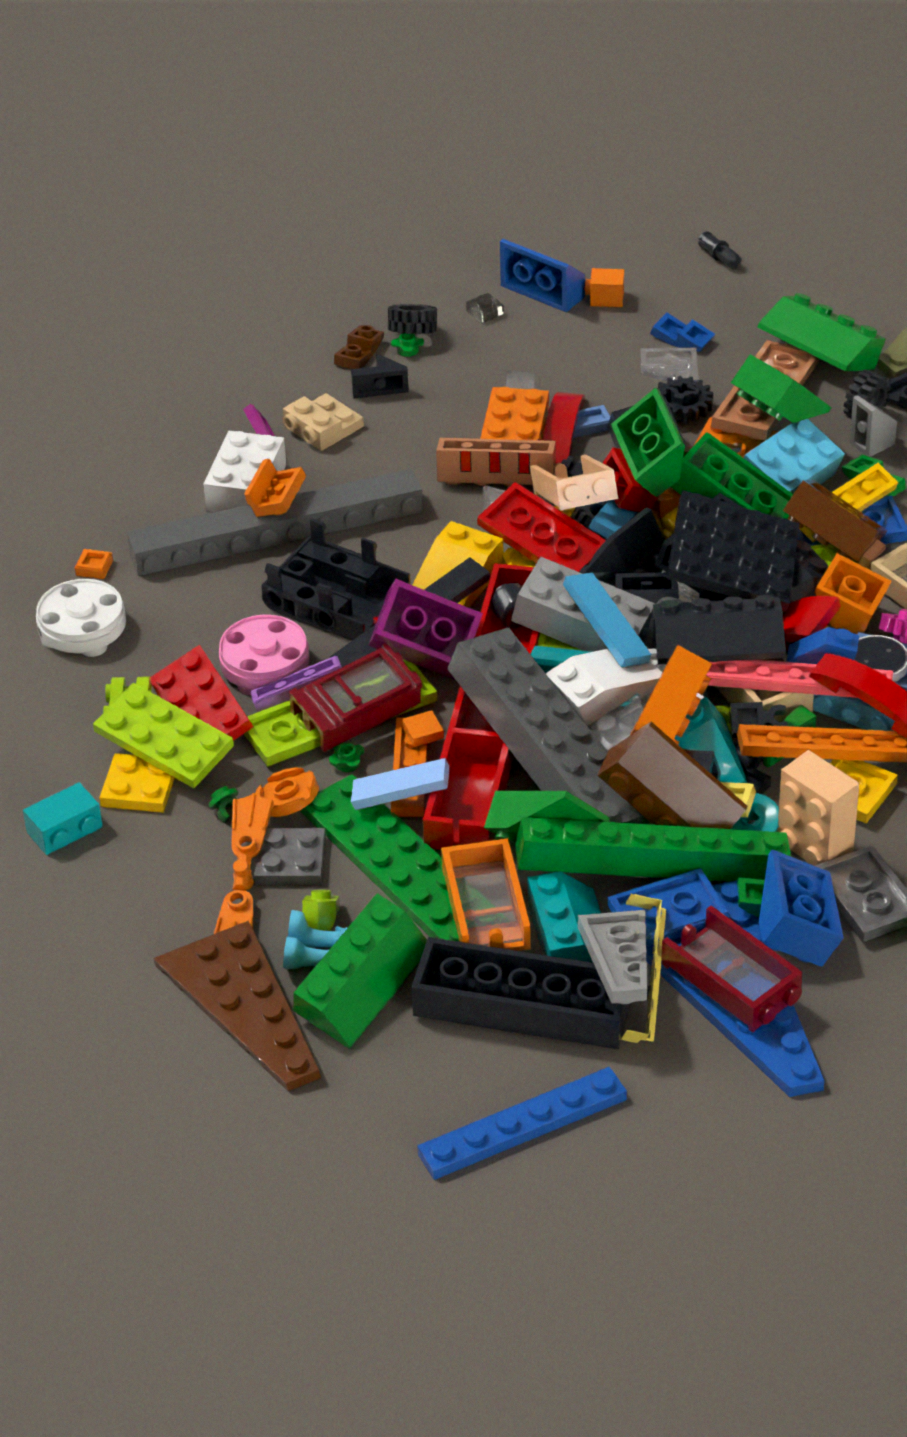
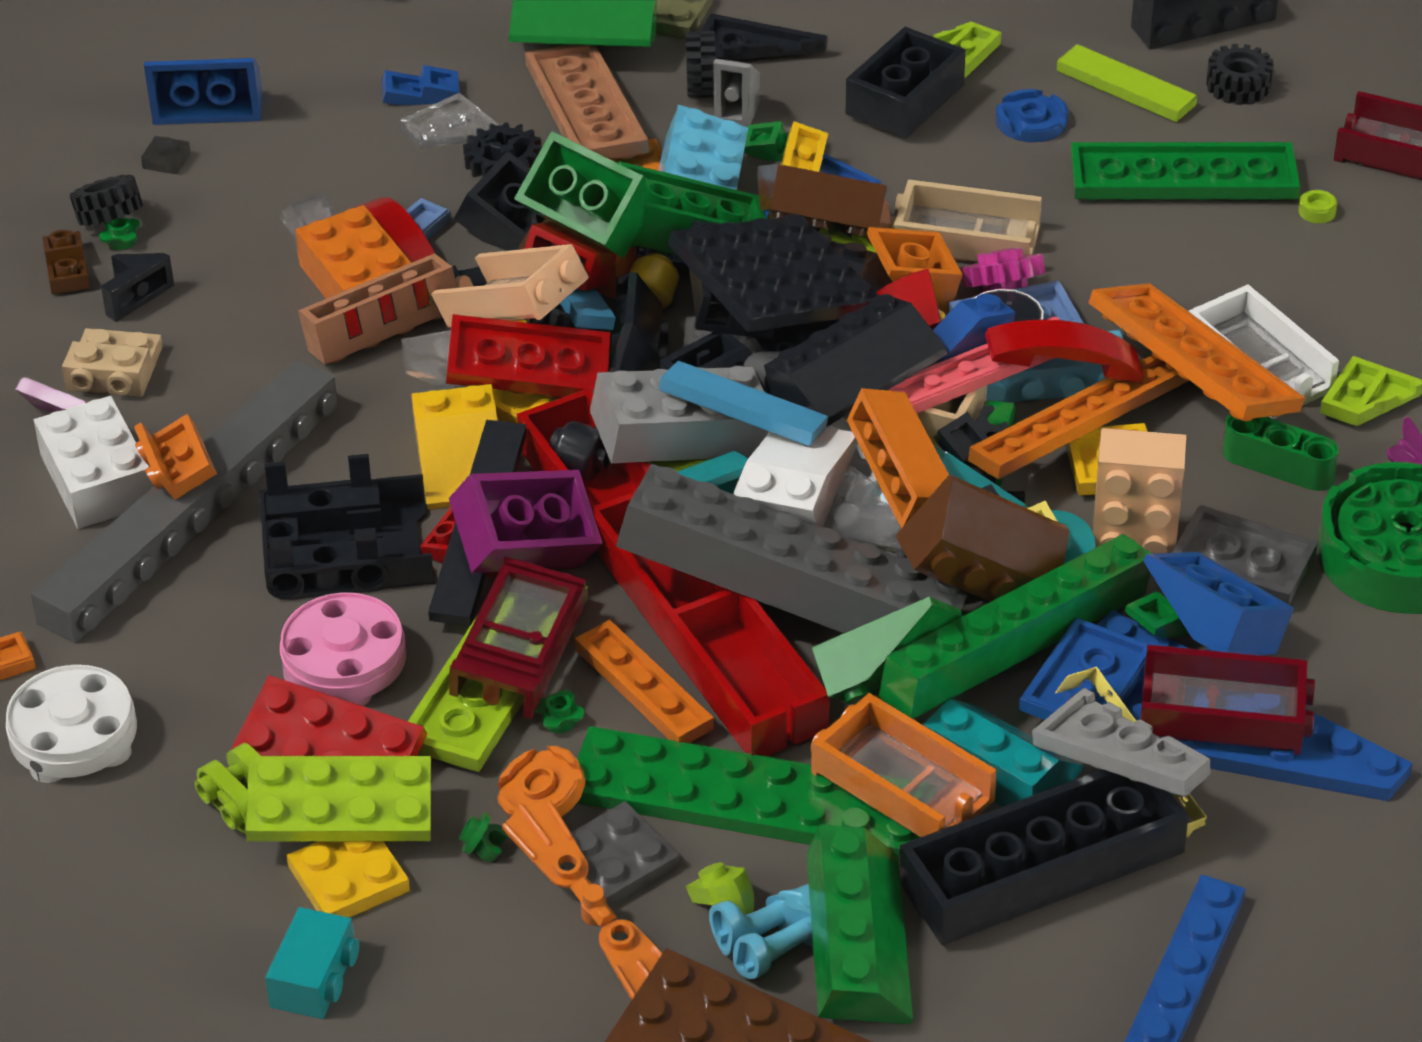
camera: 40 degrees left, 0 degrees up
(278, 691) = (423, 661): medium lavender tile -> none
(400, 784) = (680, 701): light blue tile -> none
(422, 728) = (624, 632): orange tile -> none
(605, 287) = (288, 73): orange brick -> none
(776, 392) = (630, 90): green slope -> none

